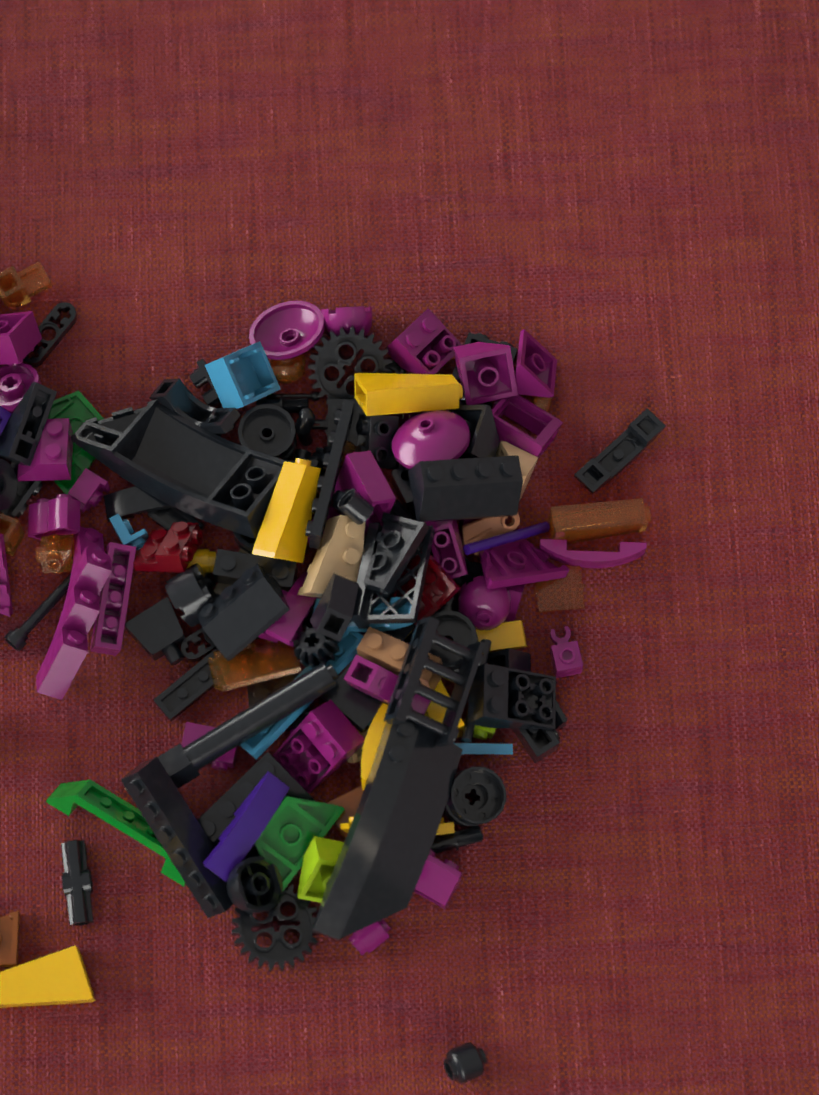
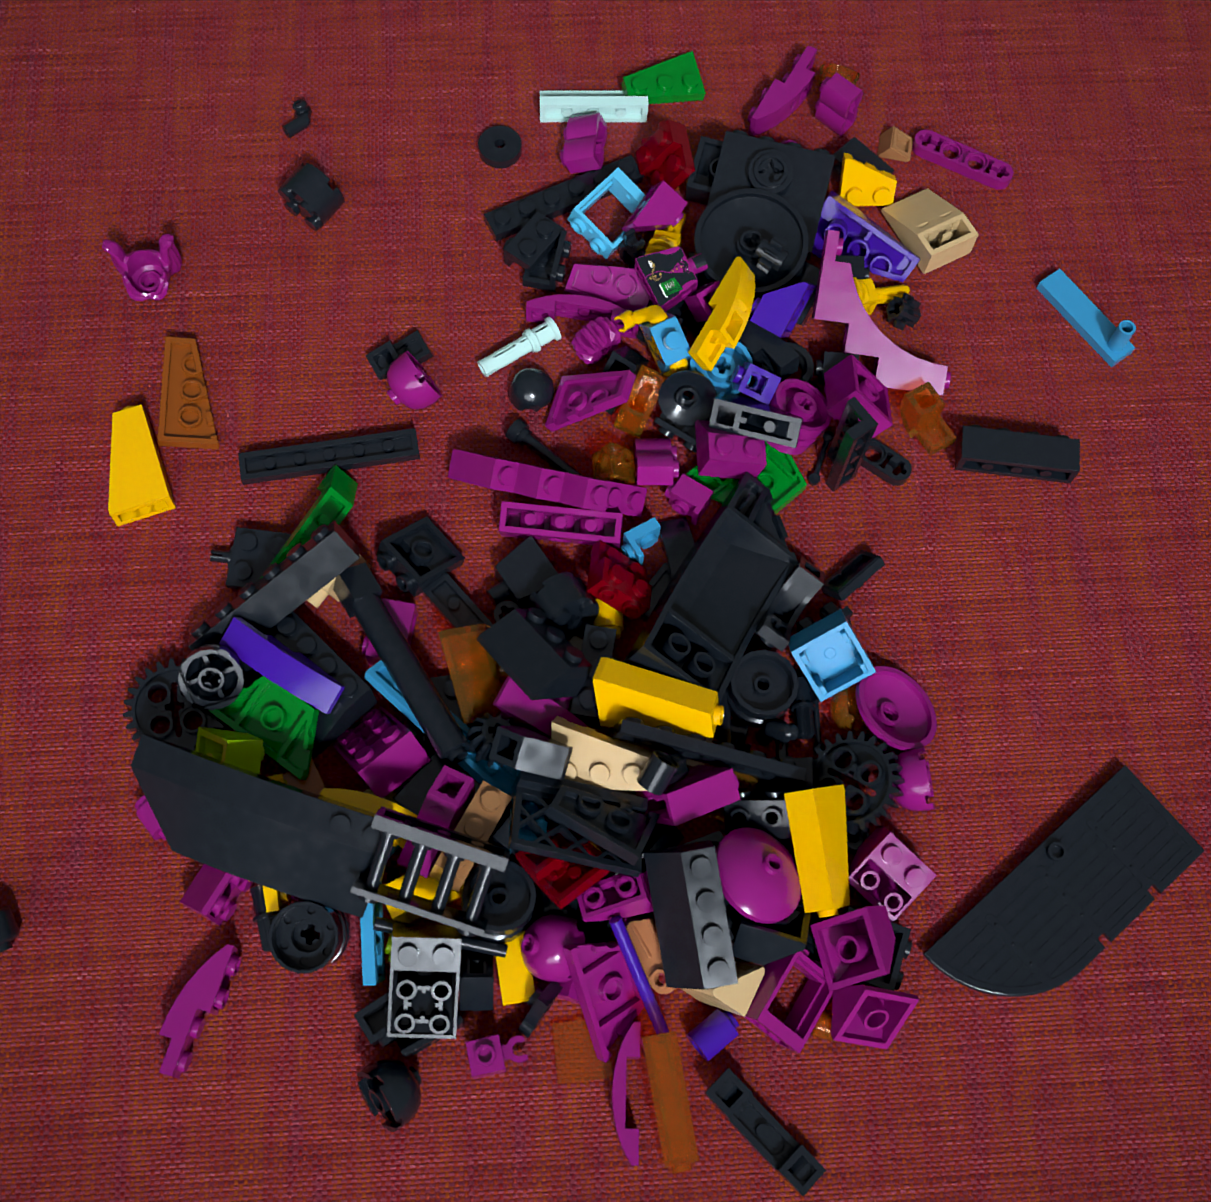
camera: 85 degrees right, 5 degrees down
(34, 809) = (321, 456): none -> black plate
(53, 347) = (850, 443): none -> black fence
(55, 213) = (1017, 454): none -> black brick
(68, 385) = (814, 478): none -> black hinge
(77, 883) = (243, 500): black piece -> none
(133, 869) = (249, 555): none -> black plate
(137, 723) = (418, 556): none -> black plate
(163, 357) = (852, 575): none -> black plate
(435, 213) = (1070, 890): none -> black door
(517, 885) = (201, 994): none -> magenta slope
(528, 614) = (540, 1003): none -> black plate
(547, 486) = (713, 1033): none -> dark purple brick
(593, 730) = (391, 1090): none -> black cylinder

